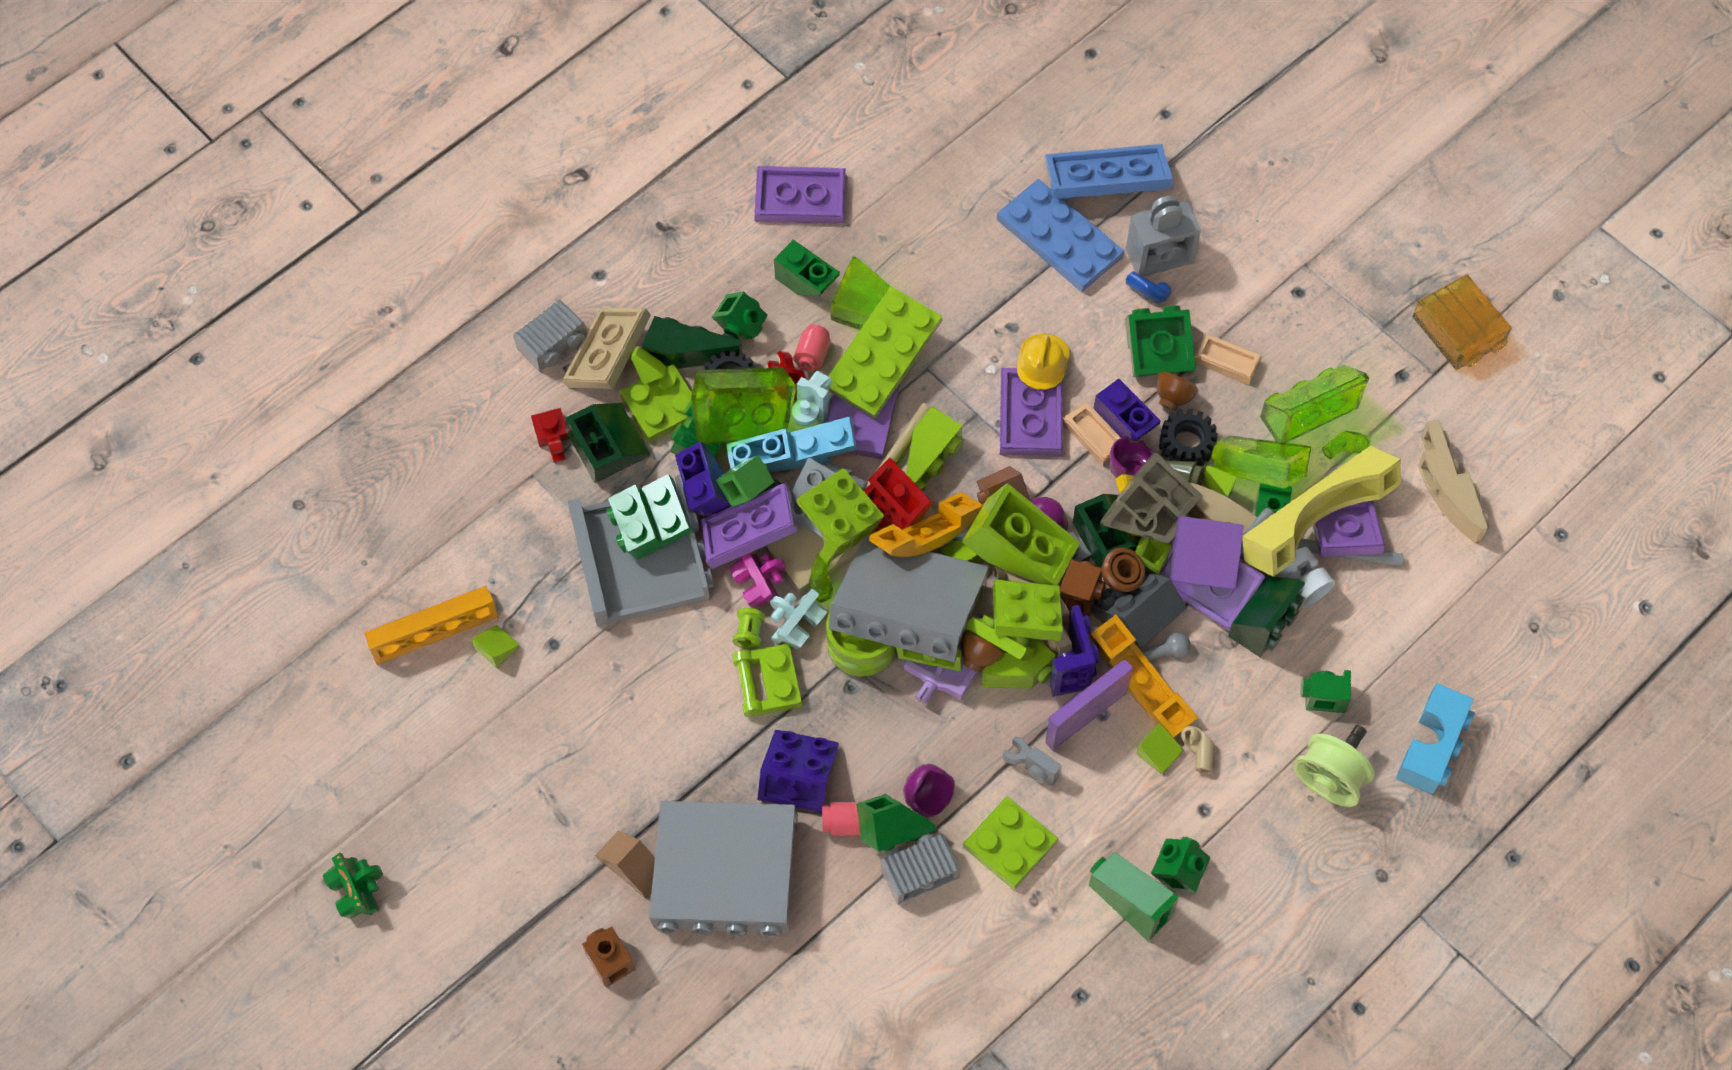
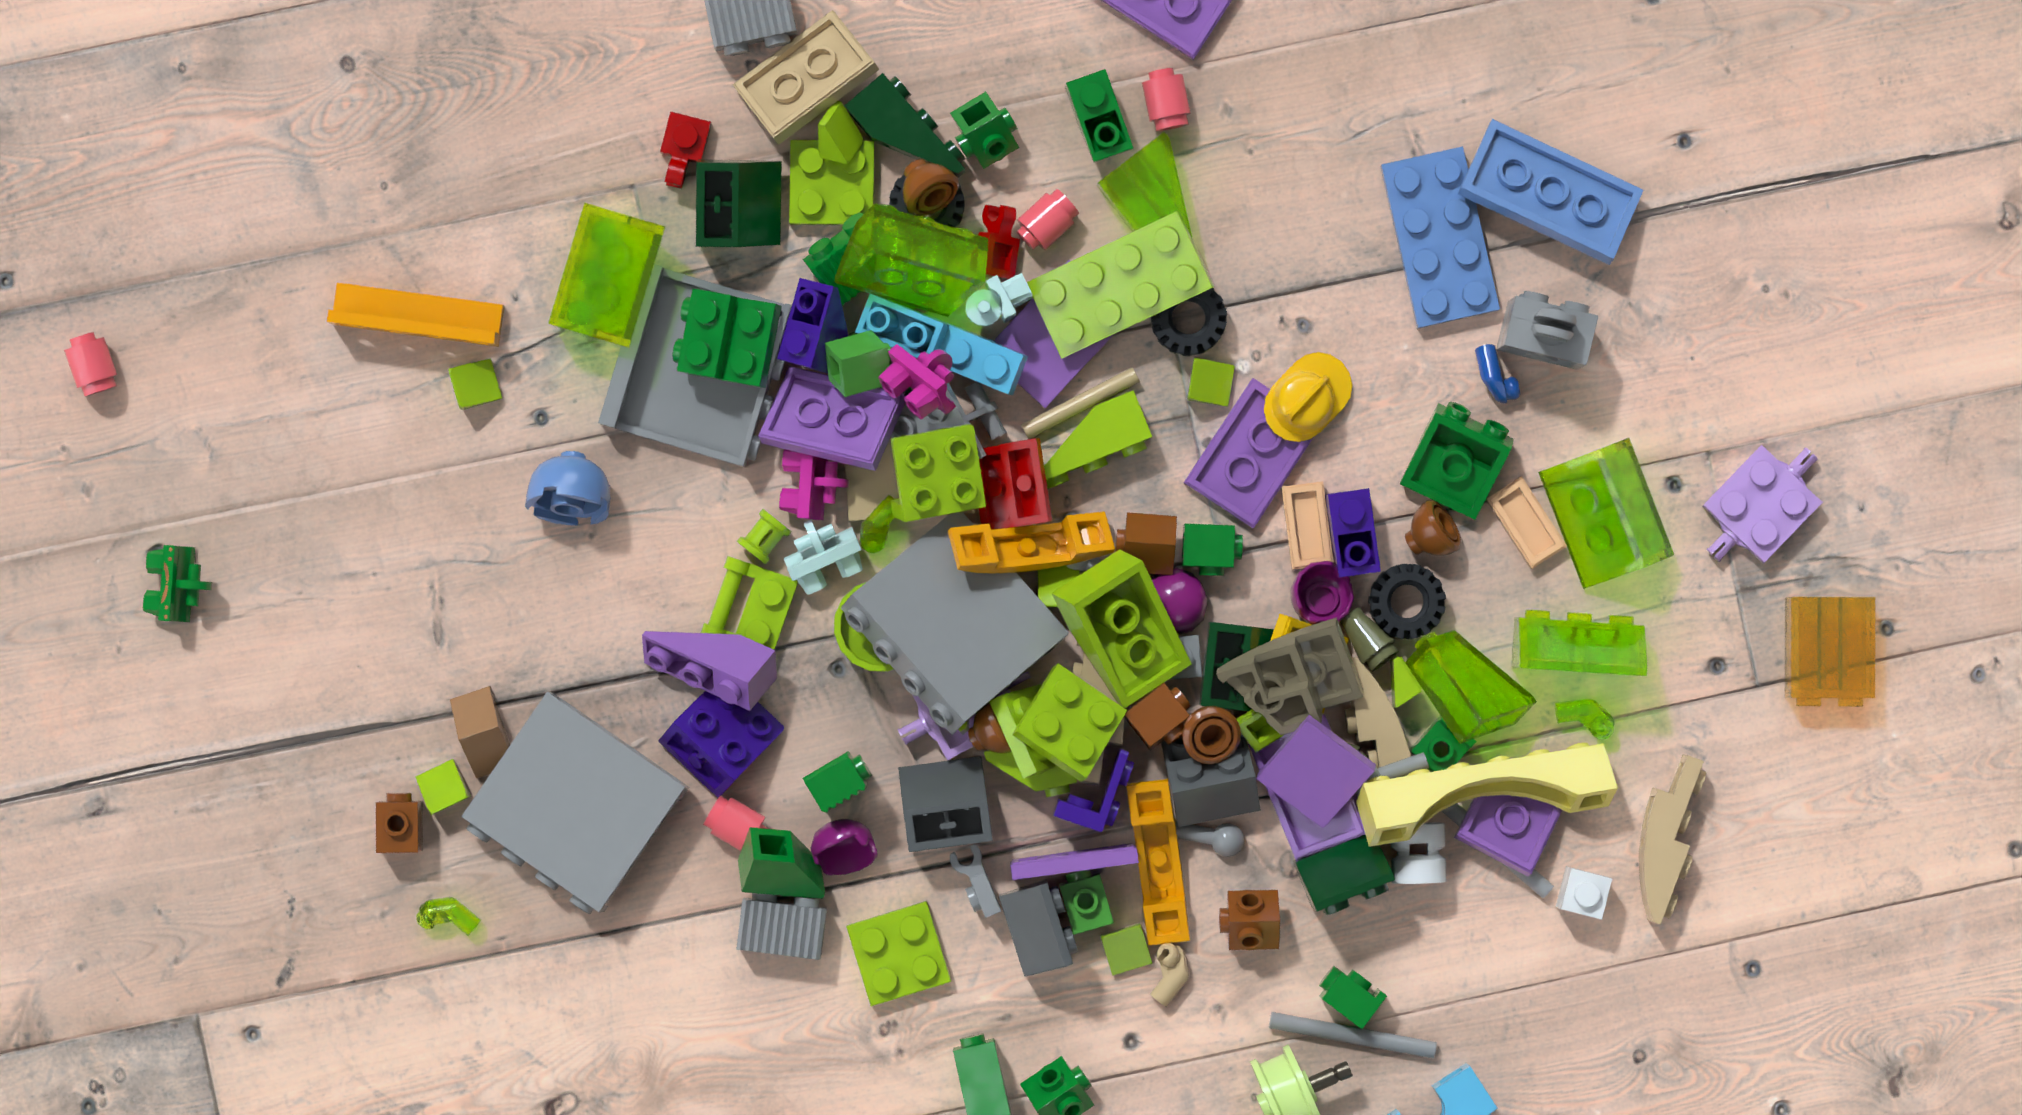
camera: 25 degrees right, 25 degrees up
(216, 775) = (91, 364): none -> coral brick
(546, 524) = (606, 275): none -> clear neon green slope
(600, 670) = (569, 489): none -> medium blue cylinder
(625, 915) = (442, 786): none -> lime slope
(676, 997) = (445, 911): none -> clear neon green arm
(725, 354) = (928, 187): none -> dark orange brick
(764, 721) = (717, 663): none -> medium lavender slope
(792, 460) = (927, 377): none -> dark pink hips
(841, 244) = (1166, 99): none -> coral brick
(896, 745) = (838, 781): none -> green brick
(944, 370) = (1197, 342): none -> black tyre
(975, 385) = (1210, 382): none -> lime slope
(980, 725) = (945, 804): none -> dark grey slope
(1043, 473) = (1211, 547): none -> green brick
(1094, 761) = (1037, 929): none -> dark grey slope
(1113, 732) = (1085, 901): none -> bright green brick
(1229, 678) = (1251, 920): none -> dark orange brick
(1271, 323) = (1606, 513): none -> clear neon green slope
(1345, 718) = (1352, 1035): none -> light grey bar
(1359, 271) = (1762, 504): none -> lavender plate
(1425, 542) = (1583, 892): none -> white brick

